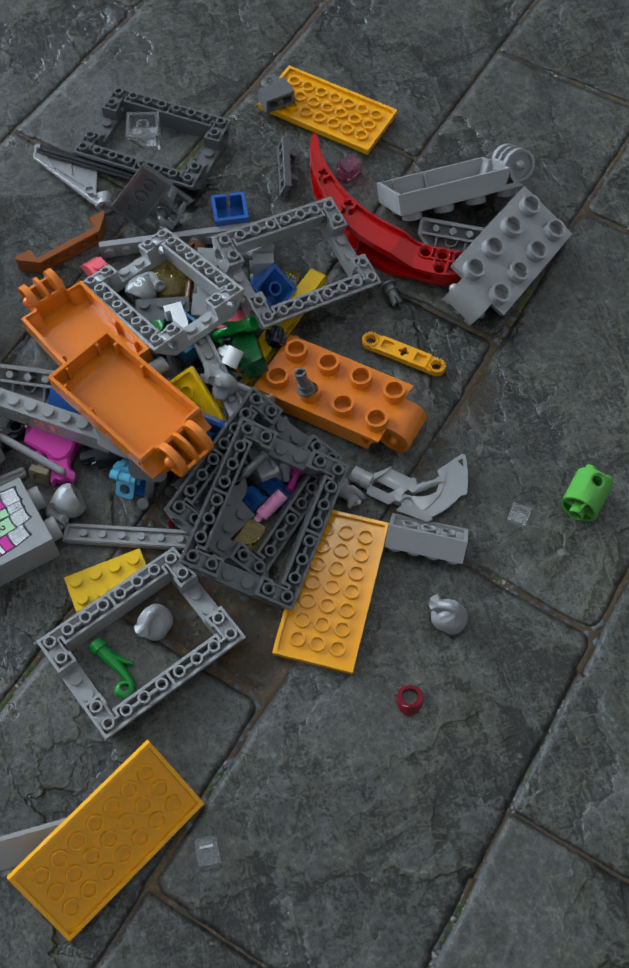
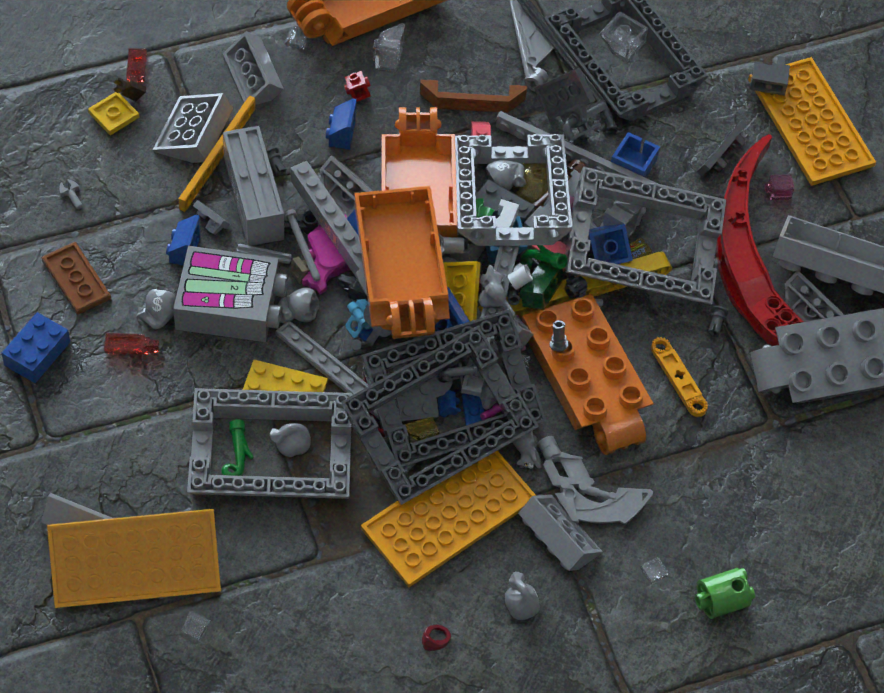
camera: 35 degrees right, 5 degrees down
(270, 506) = (456, 418): bright pink cylinder -> none

